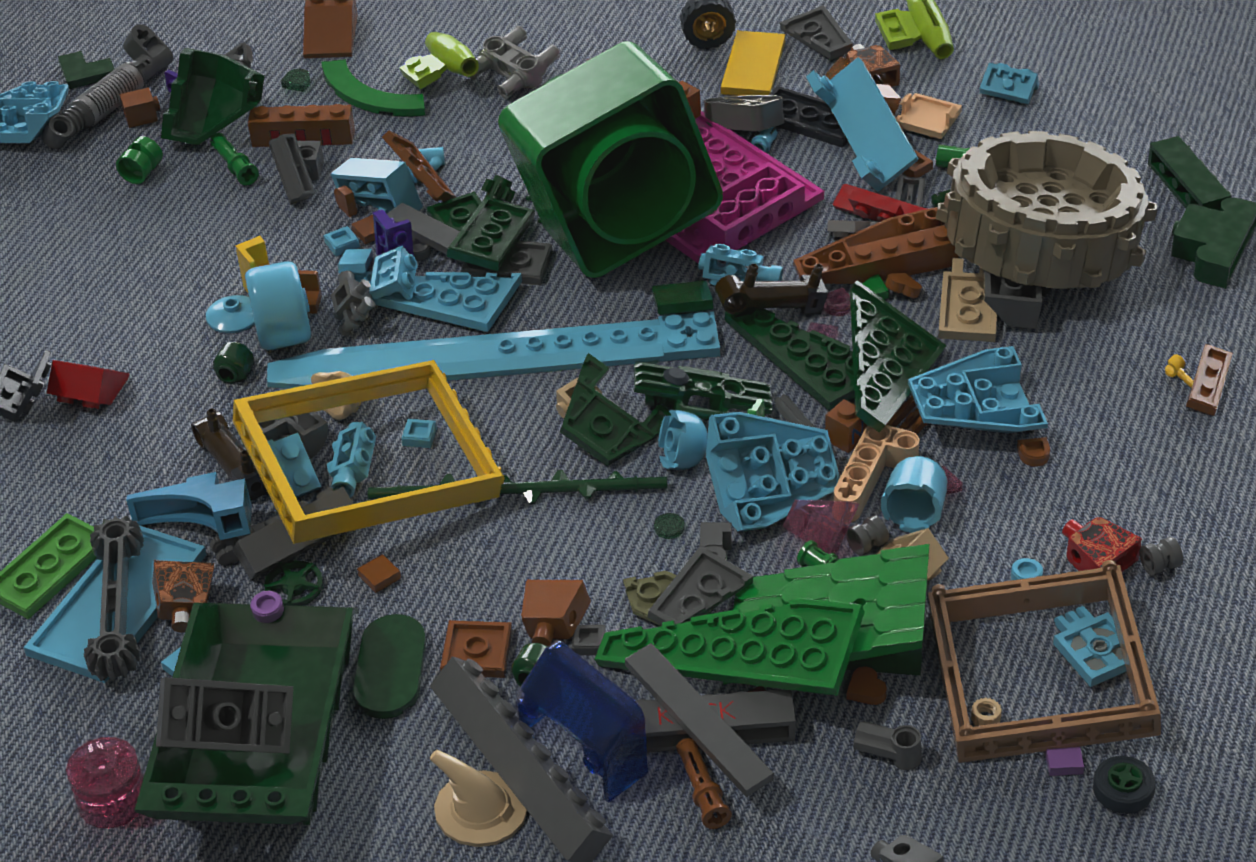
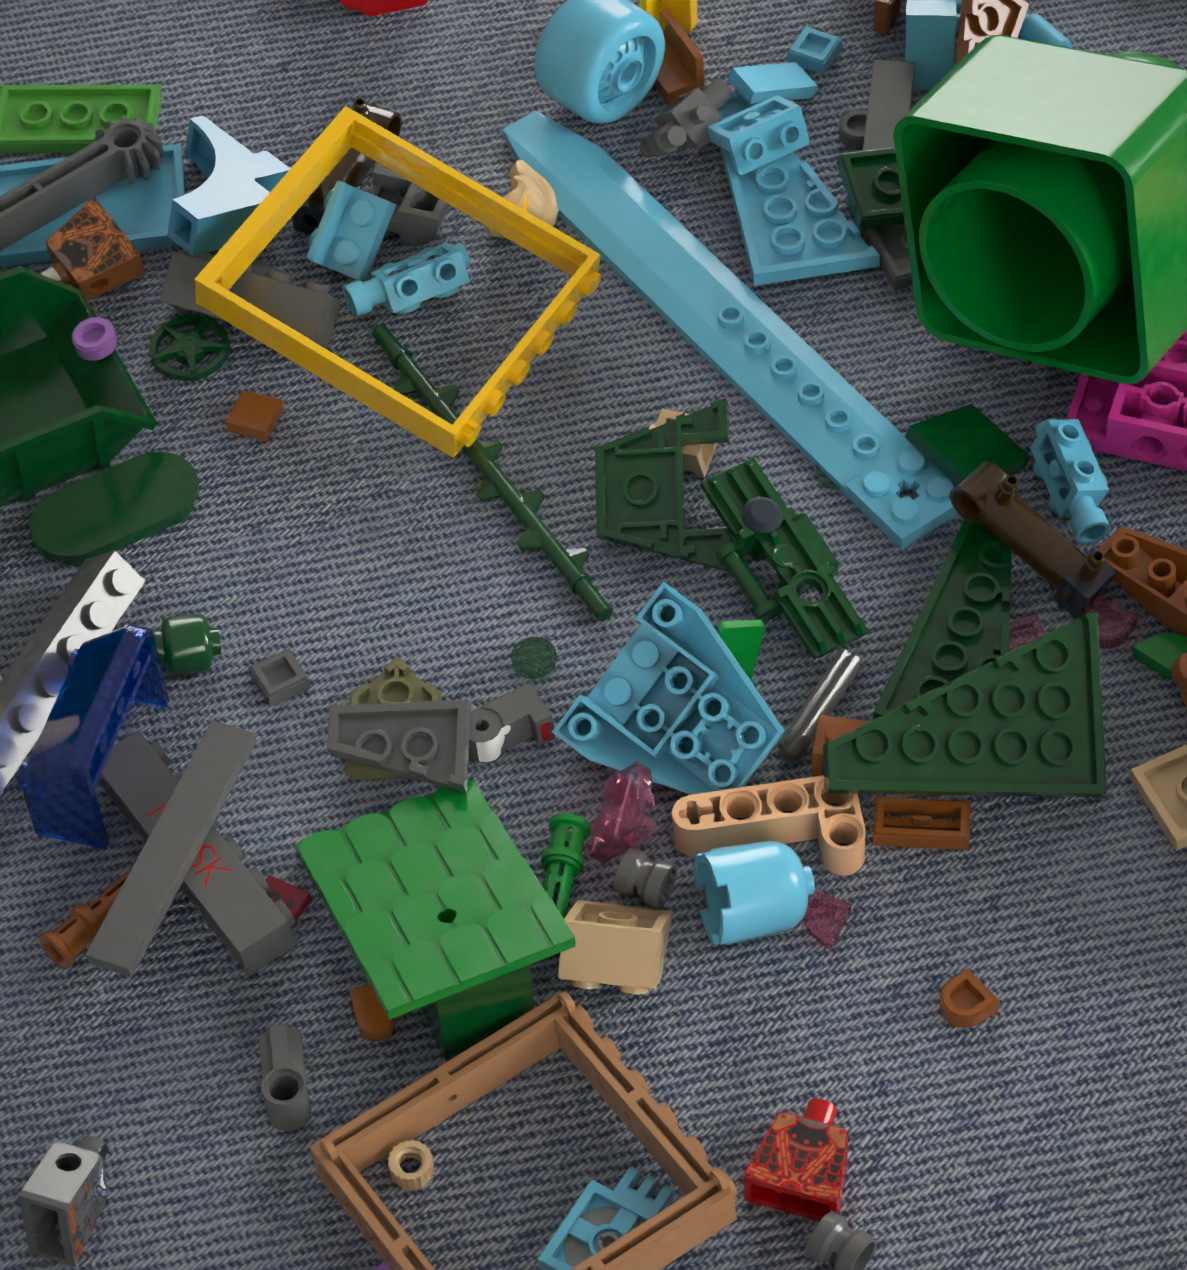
camera: 60 degrees right, 10 degrees up
(233, 362) = (506, 78): dark green head -> none
(364, 229) = (856, 62): dark orange tile -> none
(391, 234) = (822, 93): dark purple bracket -> none
(419, 433) = (516, 318): medium azure tile -> none
(481, 641) = (194, 573): dark orange tile -> none
(553, 608) = (284, 612): dark orange torso -> none
(683, 440) = (687, 572): medium azure cylinder -> none
(779, 647) = (320, 849): green wing -> none
(978, 394) = (1002, 878): medium azure wedge -> none
(1026, 568) = (710, 1098): medium azure tile -> none

